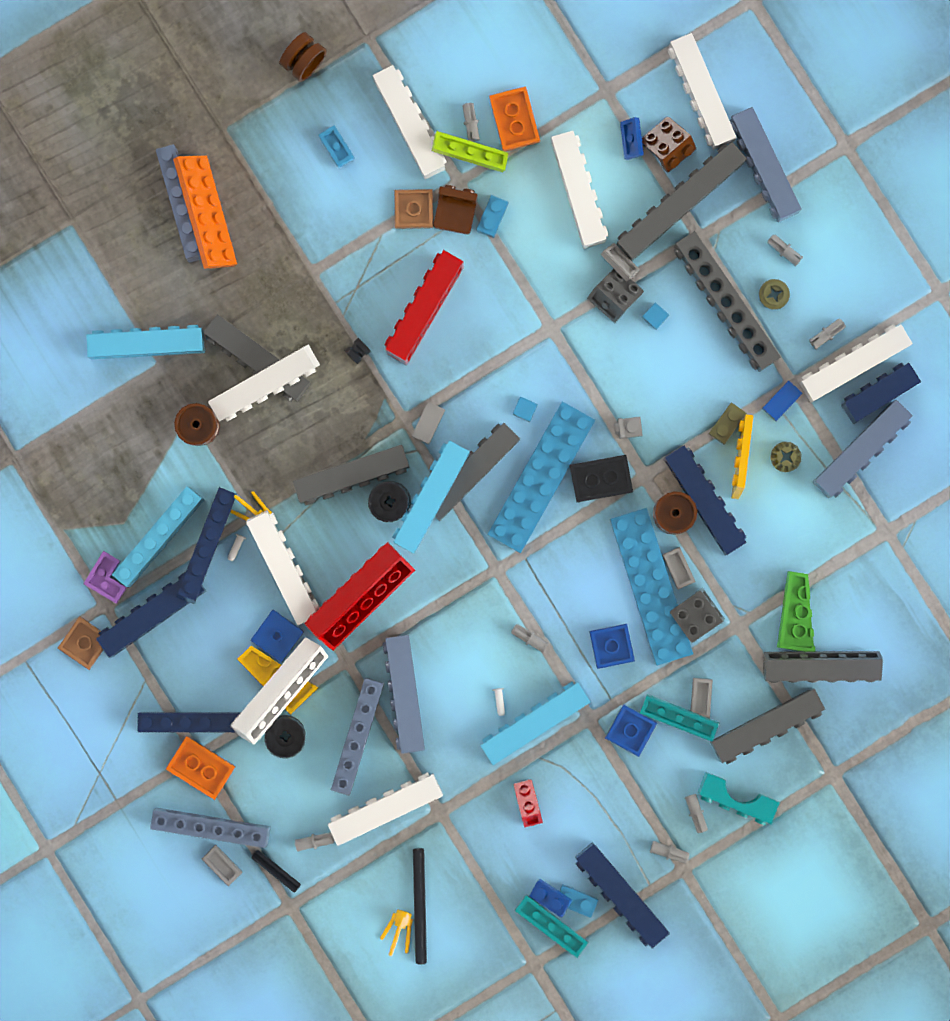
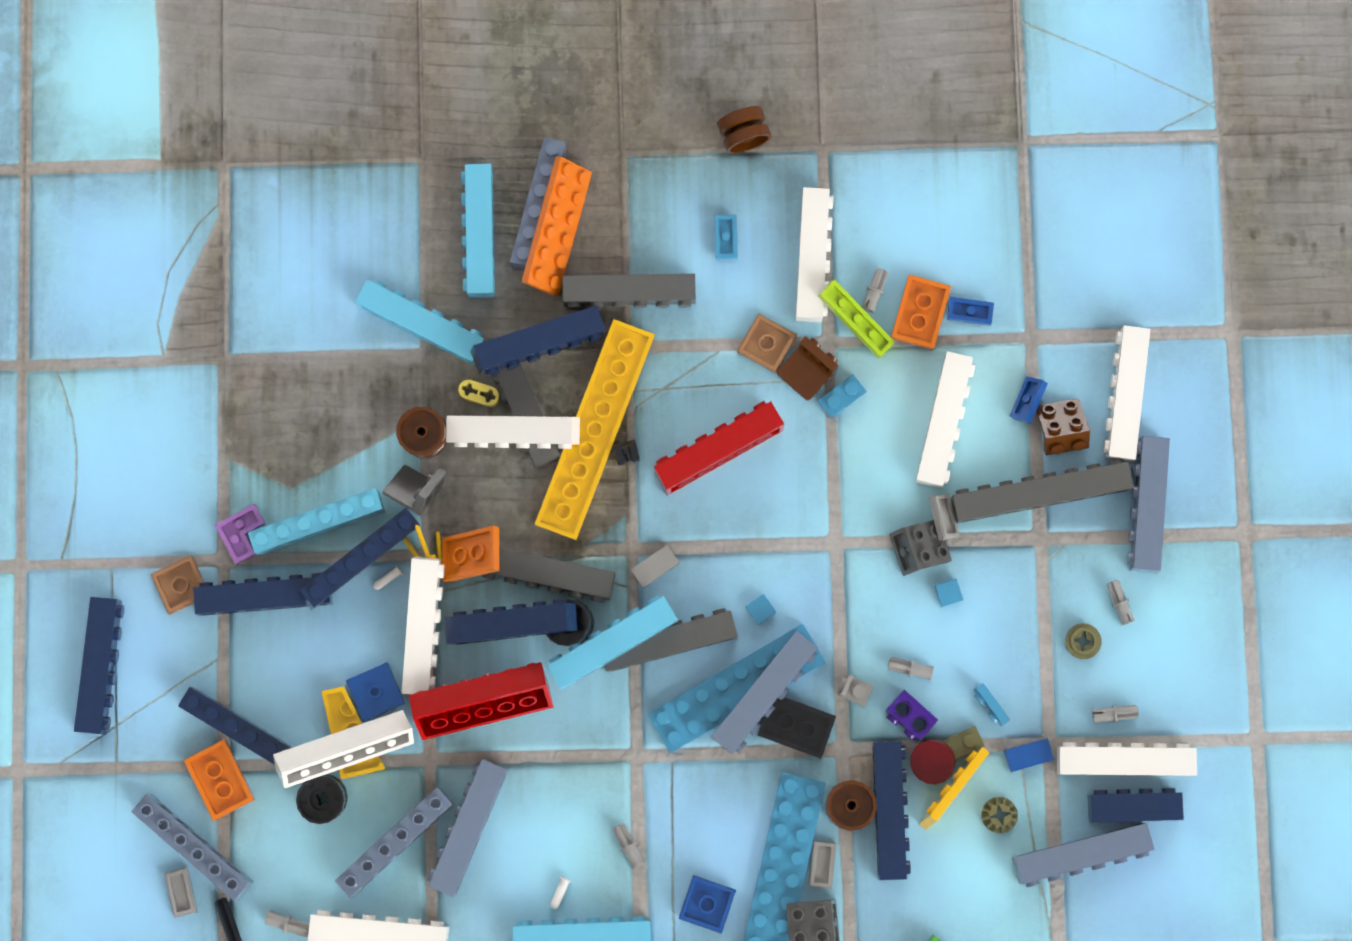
camera: 30 degrees right, 5 degrees down
(59, 737) = (98, 666): none -> dark blue brick
(149, 249) = (479, 230): none -> medium azure brick
(216, 470) = (414, 489): none -> dark grey bracket
(222, 375) = (480, 388): none -> light yellow beam
(242, 306) = (537, 341): none -> dark blue brick
(287, 493) = (470, 554): none -> orange plate
(288, 228) = (629, 290): none -> dark grey brick
(323, 334) = (600, 421): none -> yellow plate
(347, 527) = (511, 623): none -> dark blue brick
(550, 97) = (970, 311): none -> blue plate
(564, 468) = (764, 692): none -> sand blue brick
(660, 387) = (910, 668): none -> light grey axle
(680, 417) = (915, 710): none -> dark purple brick
(715, 446) = (932, 761): none -> dark red tile
(726, 377) = (985, 698): none -> dark azure plate
(737, 306) = (1030, 541): dark grey brick -> none

